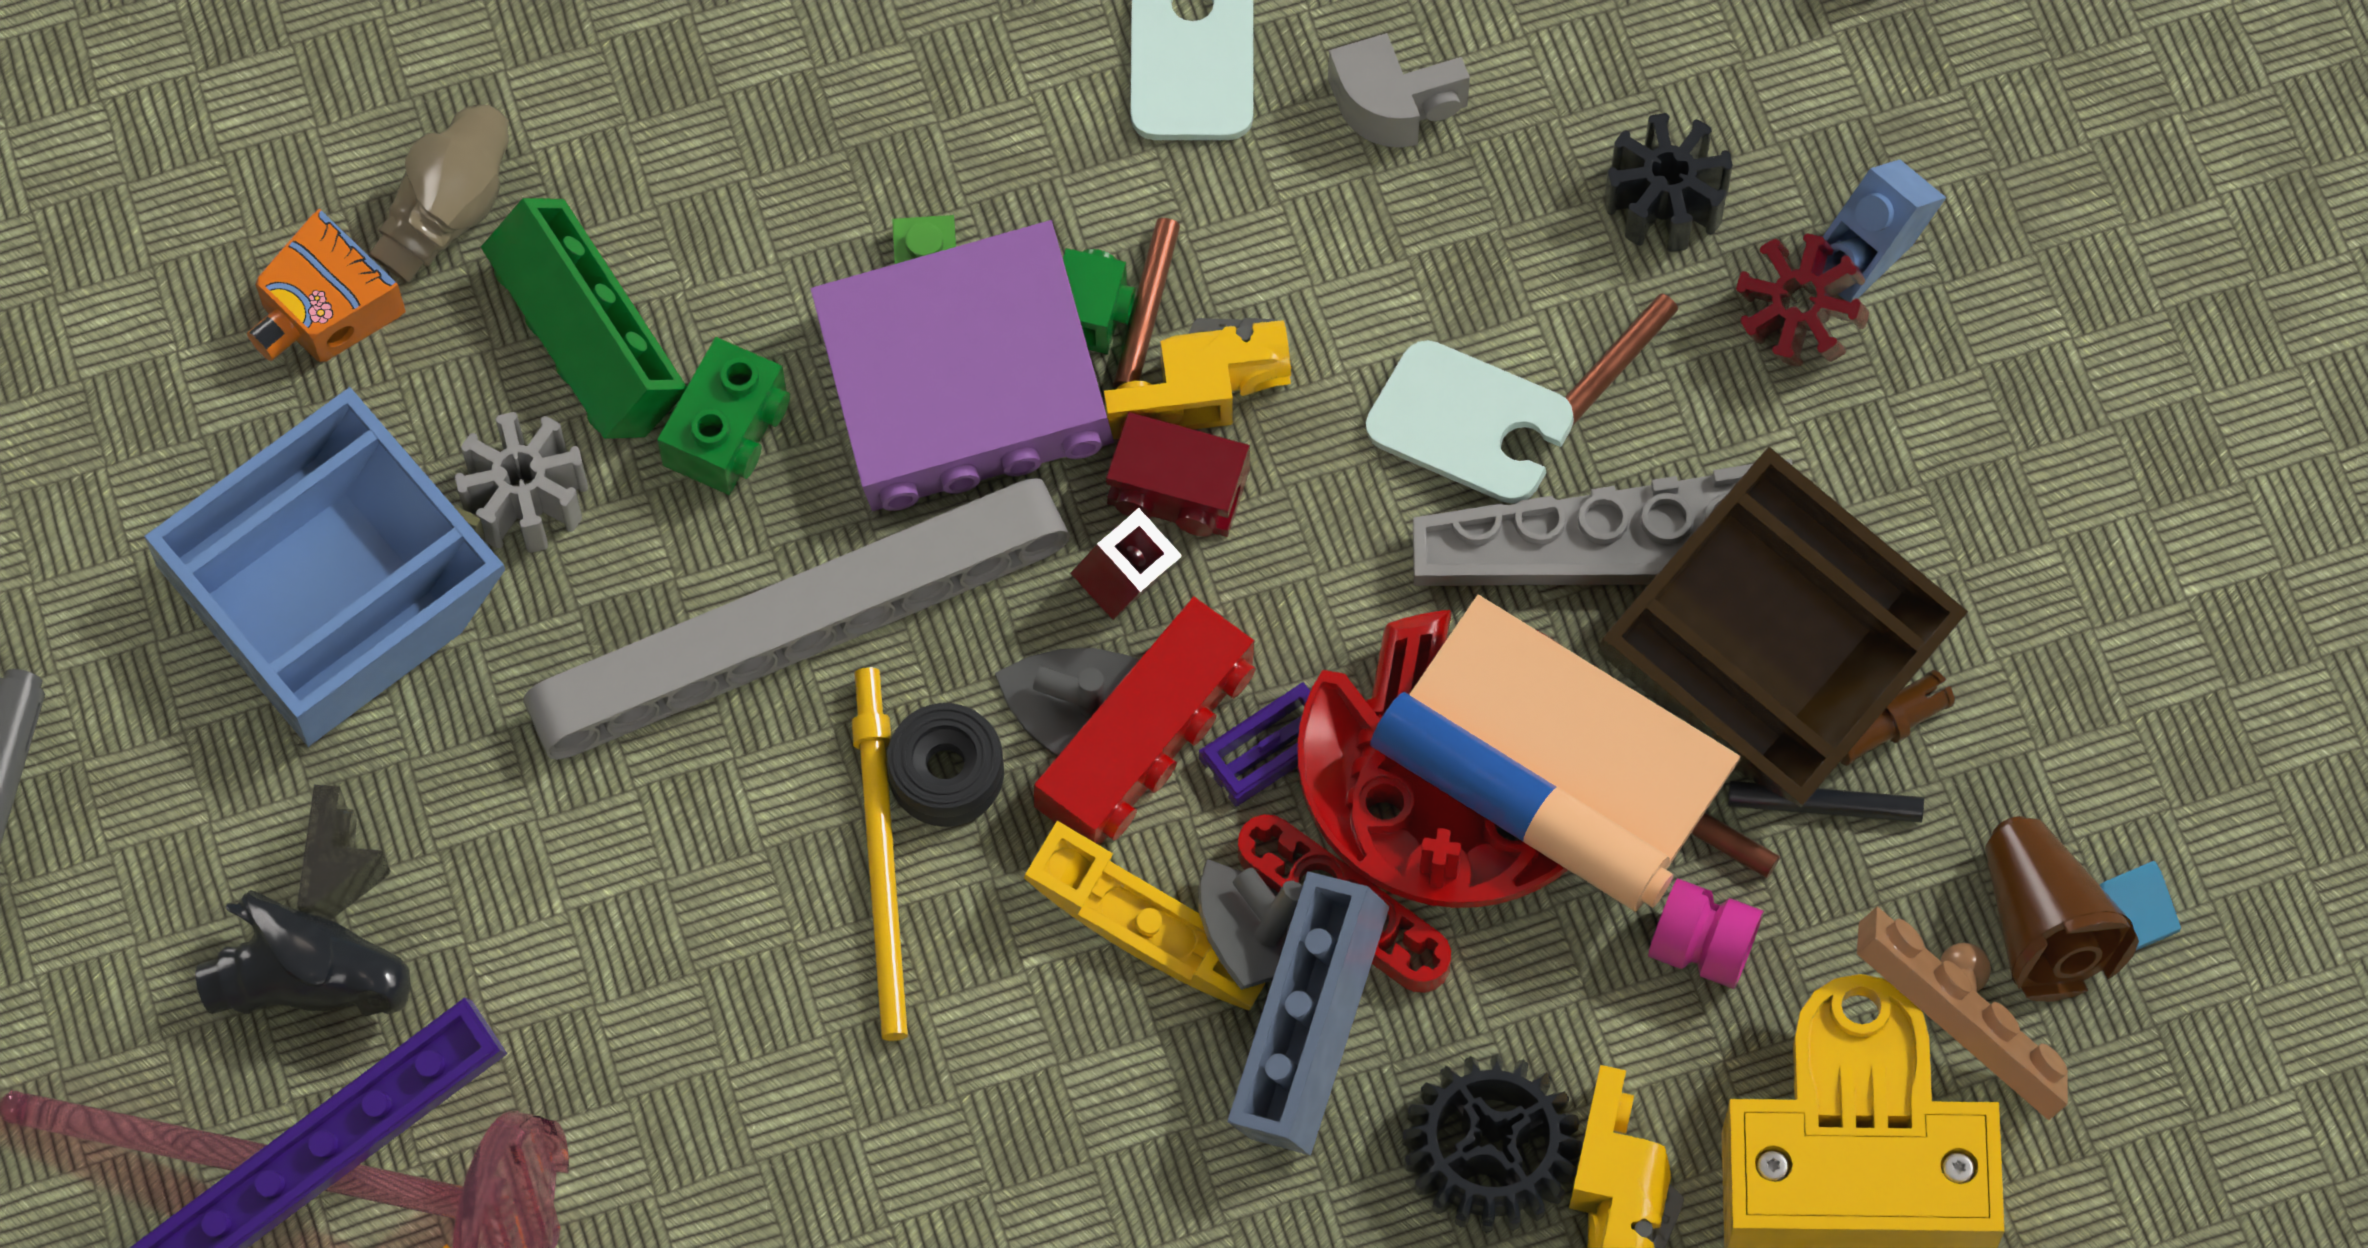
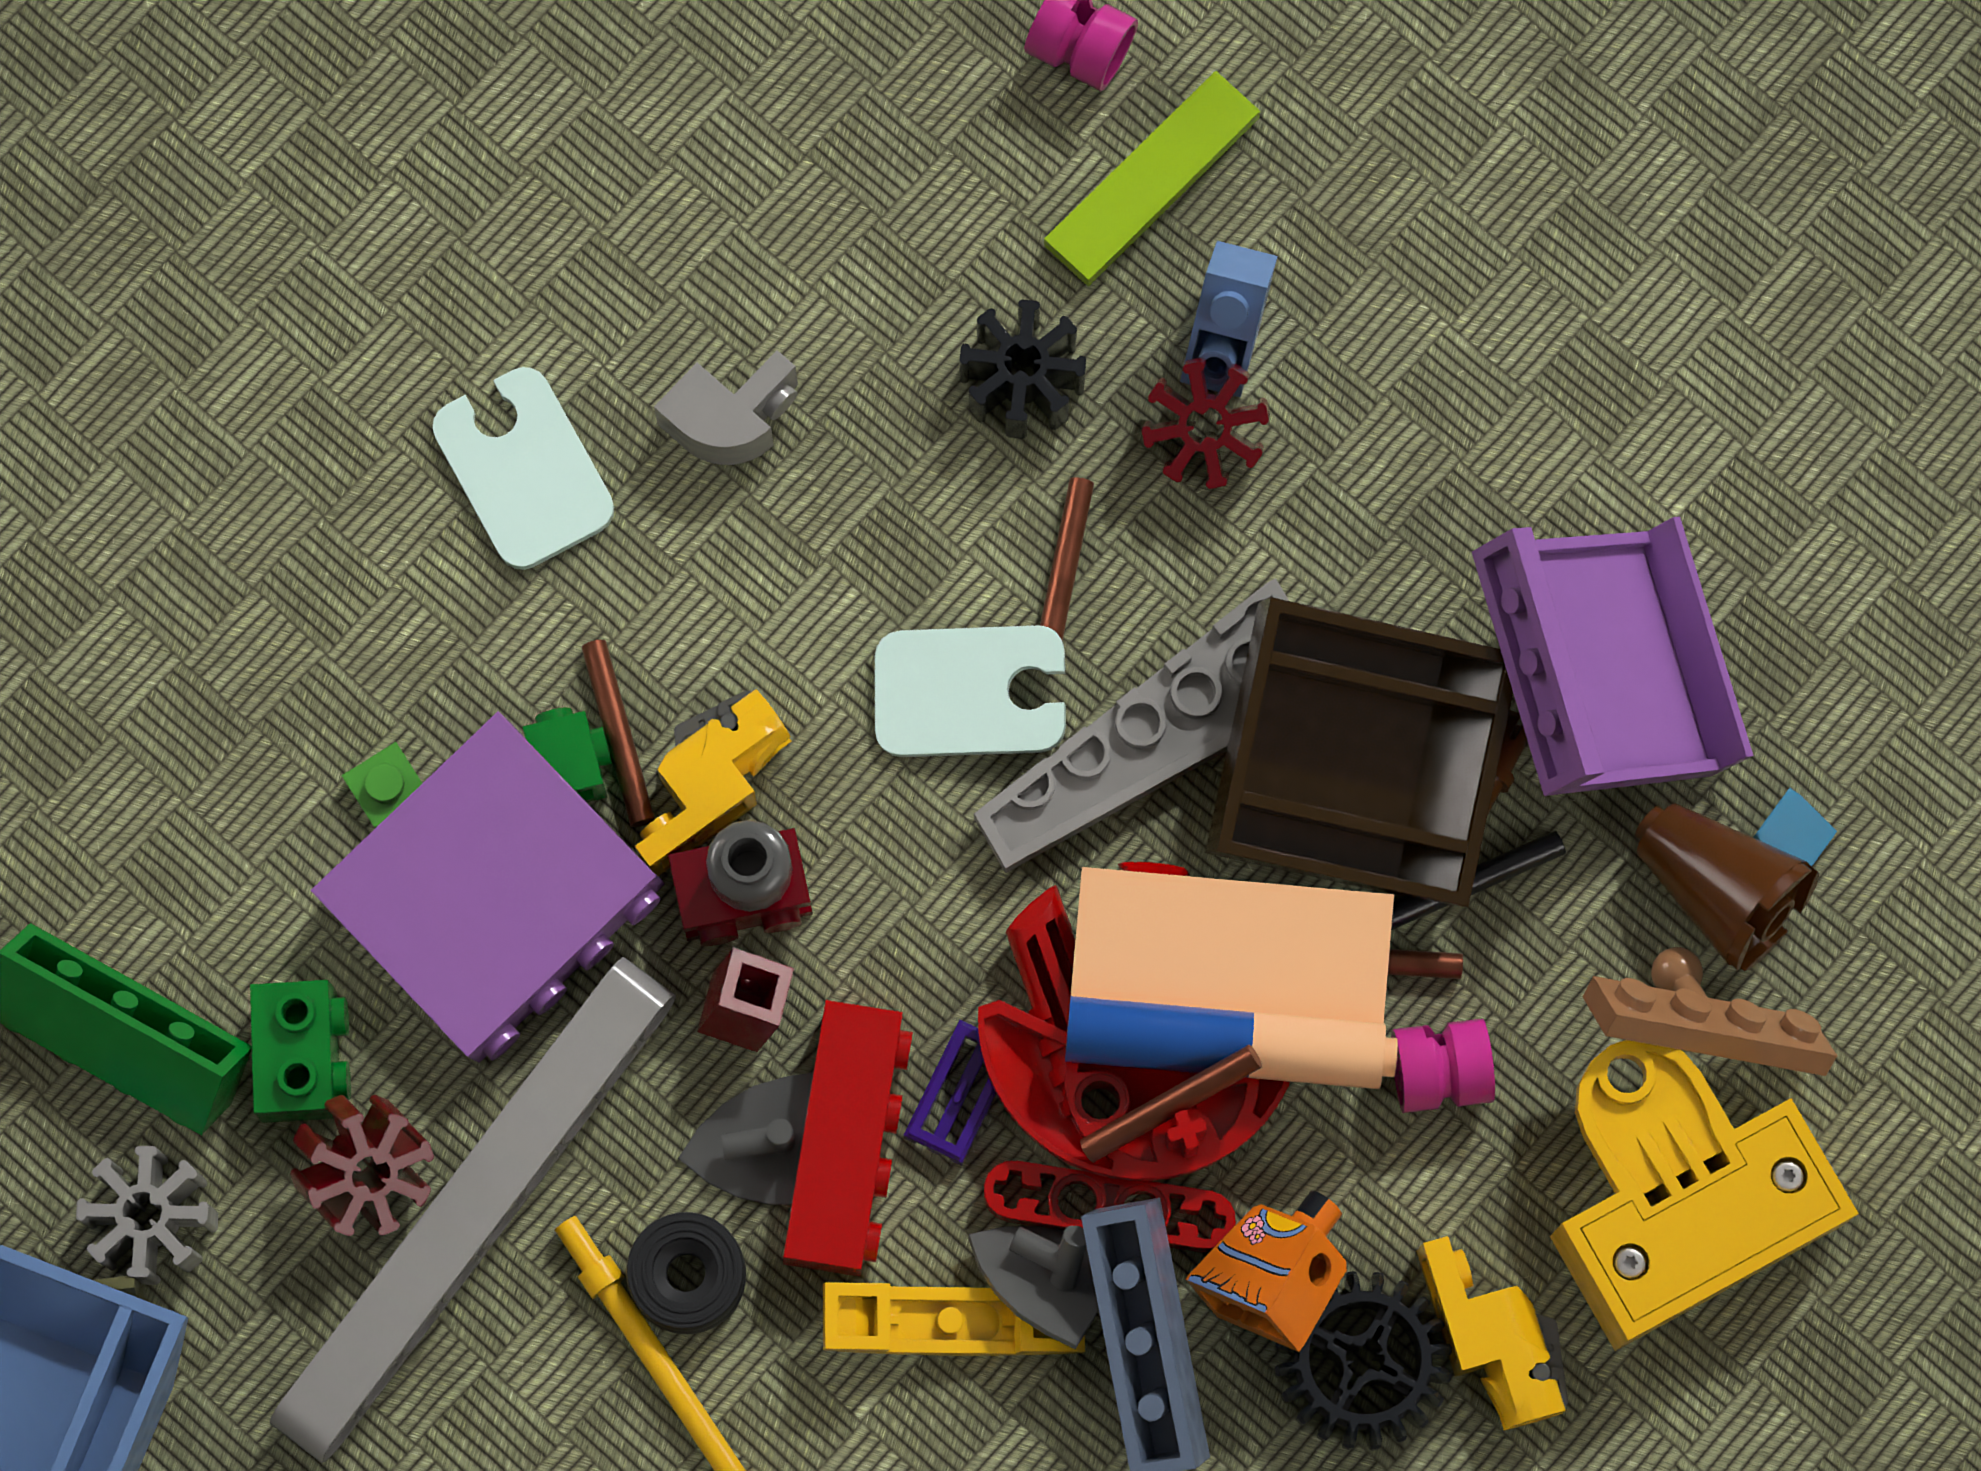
camera: 30 degrees left, 10 degrees up
(742, 517) = (345, 1191): none -> dark red gear
(1190, 444) = (749, 865): none -> dark grey head
(1426, 824) = (1170, 1102): none -> copper bar
(1455, 1020) = (1274, 1271): none -> orange torso
(1874, 88) = (1151, 178): none -> lime tile
(2050, 665) = (1612, 658): none -> medium lavender panel

